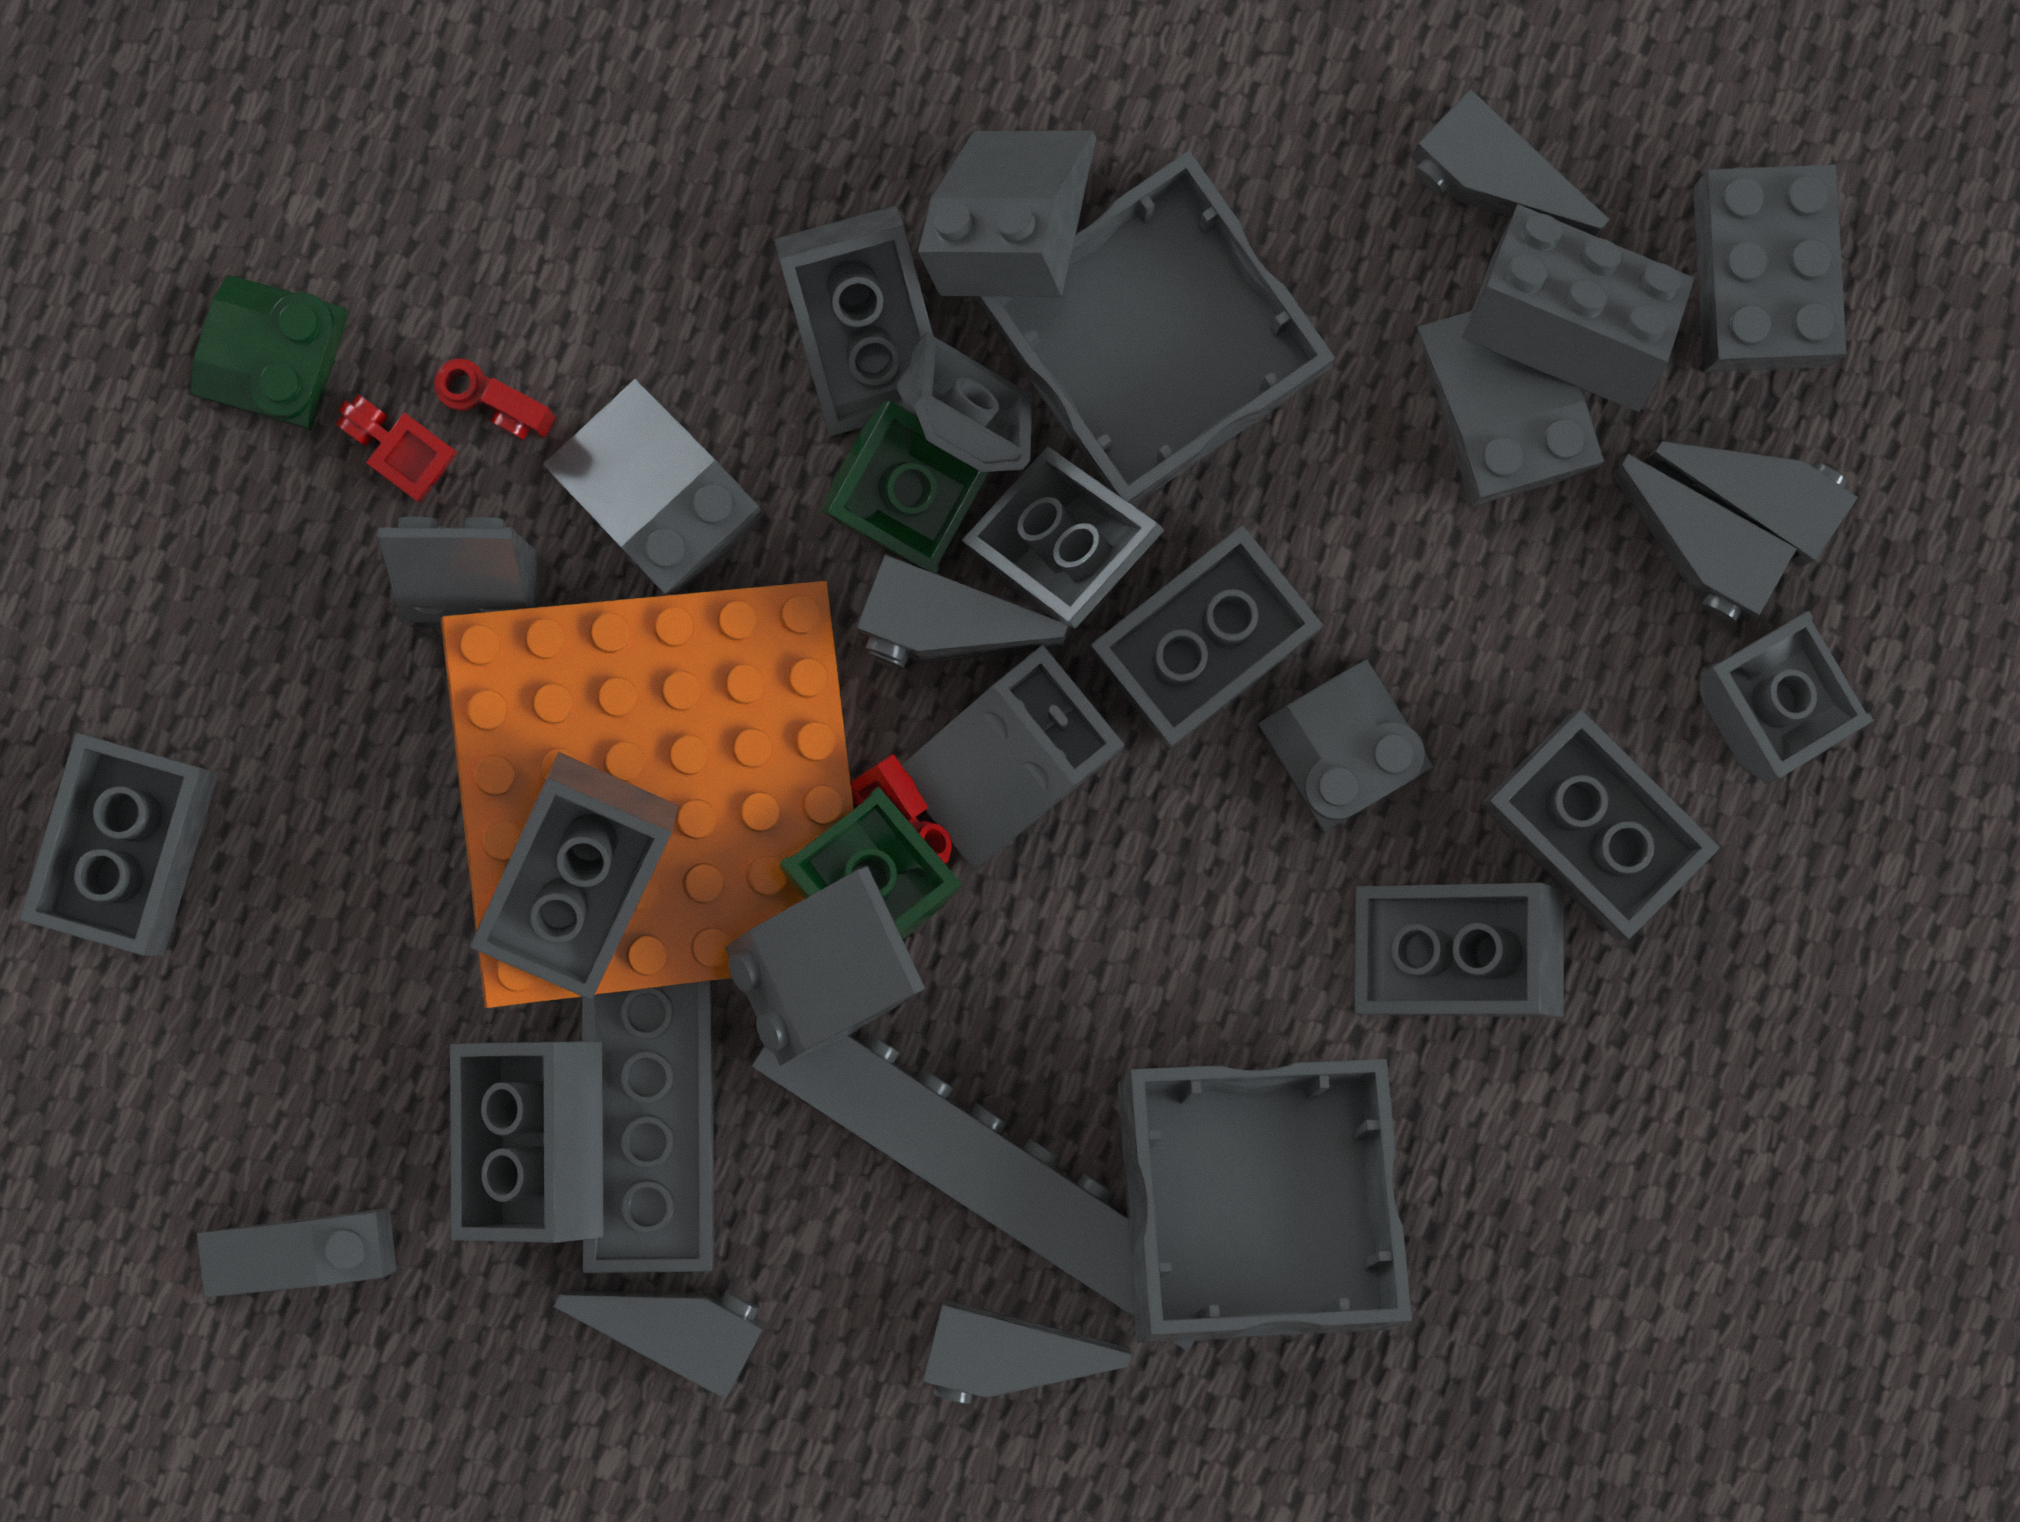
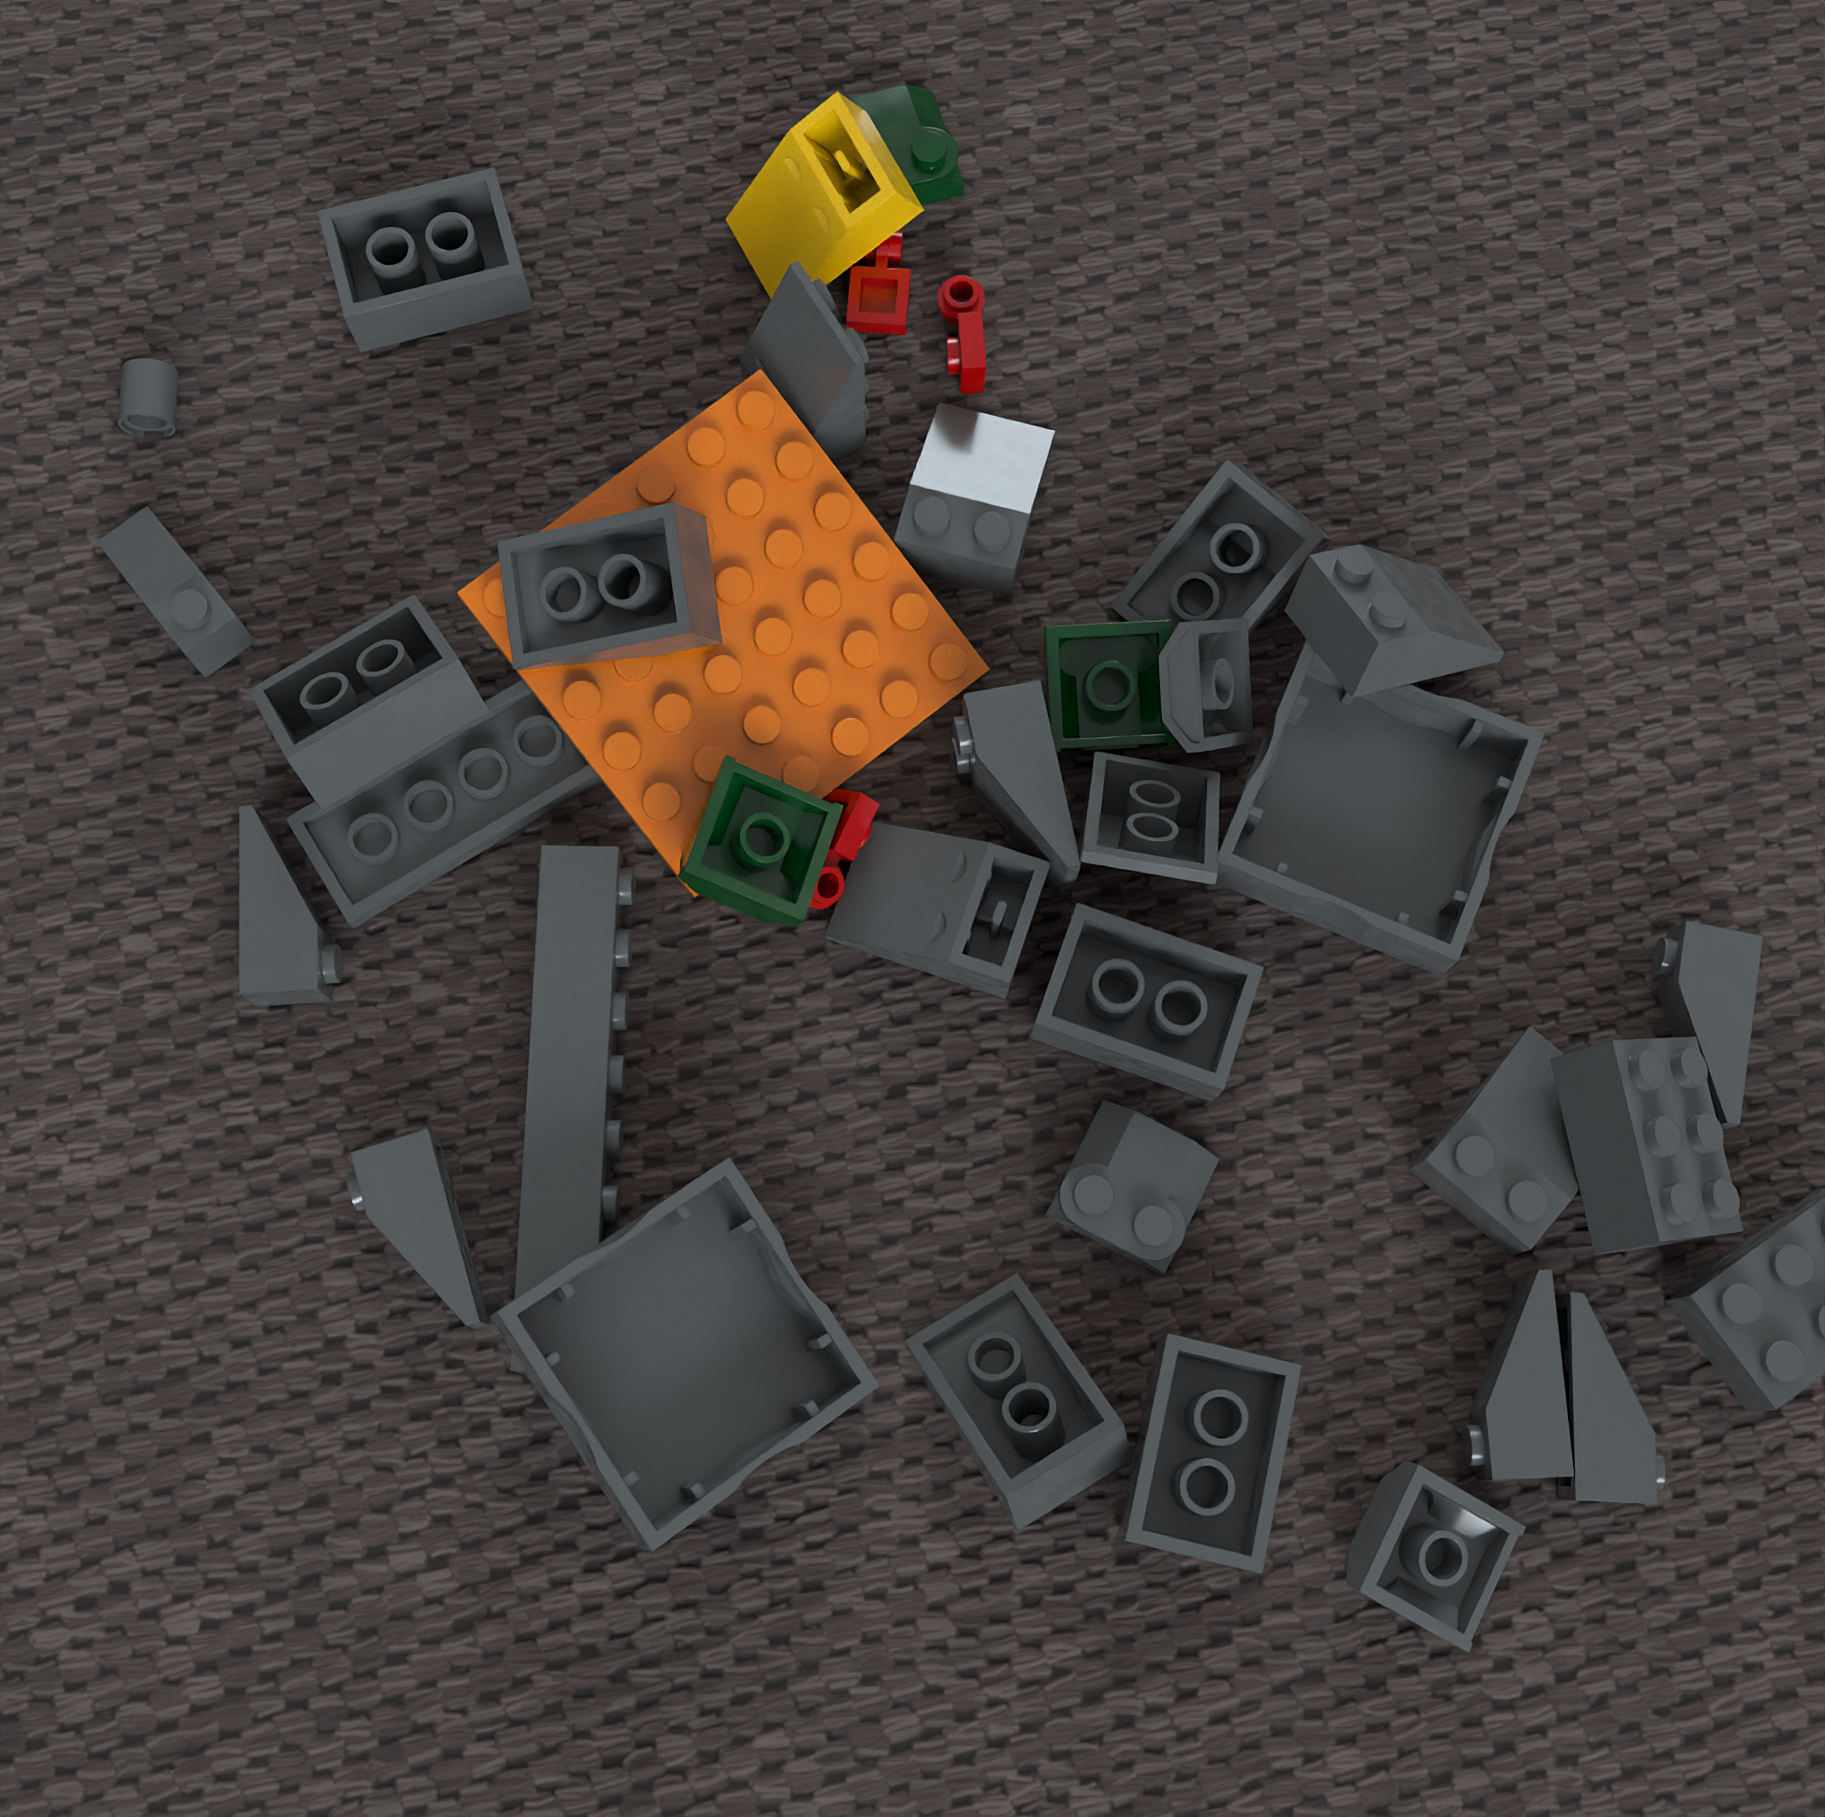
camera: 55 degrees right, 10 degrees down
(92, 1174) = (148, 397): none -> dark grey beam
(297, 456) = (822, 197): none -> yellow slope
(823, 967) = (652, 832): dark grey slope -> none

